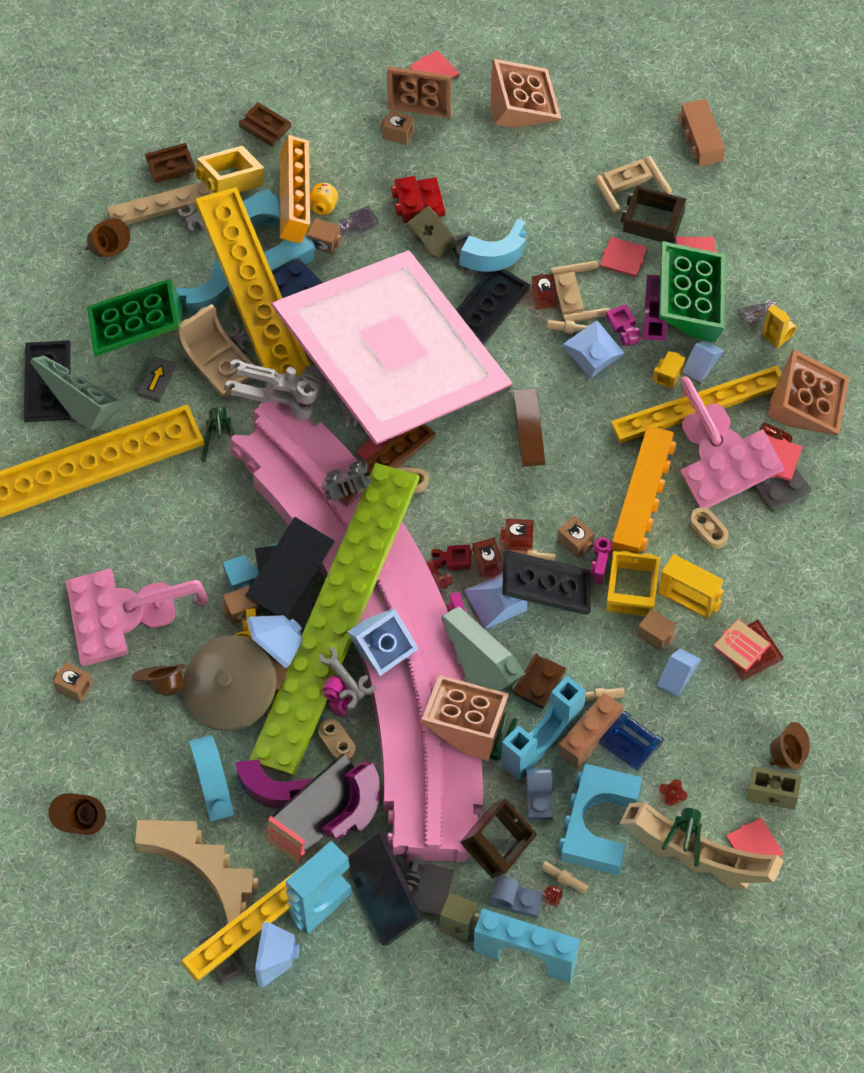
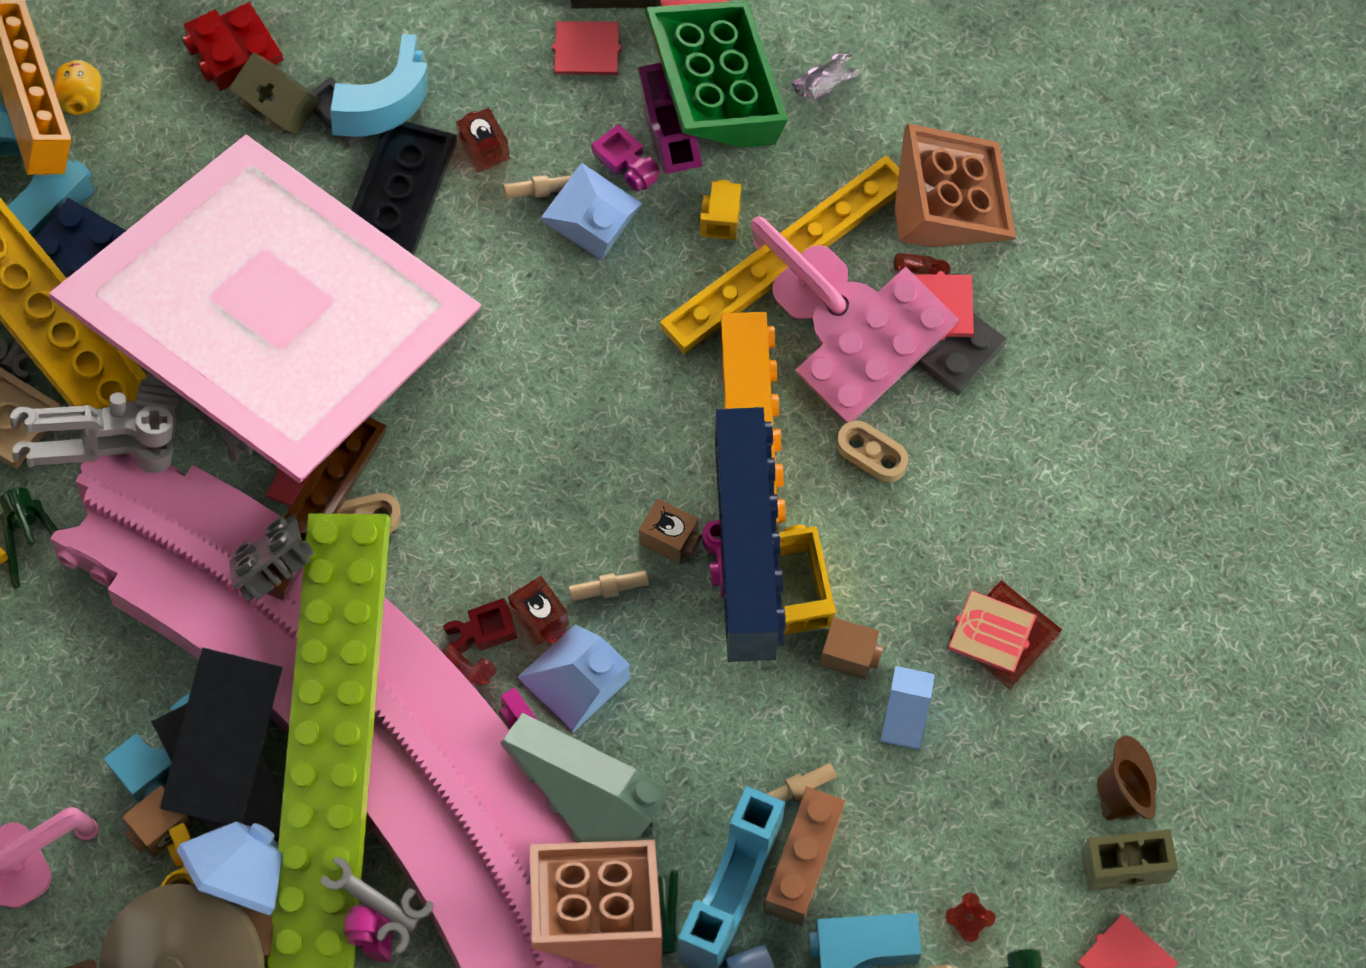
camera: 20 degrees left, 5 degrees up
(325, 236) = (100, 148): medium nougat brick -> none
(359, 220) = (149, 105): plate -> none
(383, 641) = (419, 818): light blue slope -> none
(517, 534) = (575, 556): clear red brick -> none
(529, 427) = (533, 371): reddish brown slope -> none
(539, 681) = (694, 794): reddish brown plate -> none
(546, 582) = (648, 626): black tile -> none
(569, 294) = (524, 135): tan plate -> none
(617, 547) = (749, 535): none -> dark blue brick
(626, 745) = (869, 861): clear blue plate -> none
(691, 586) = (883, 560): yellow window -> none
(701, 361) = (766, 181): light blue slope -> none
(777, 326) = (865, 93): yellow plate -> none

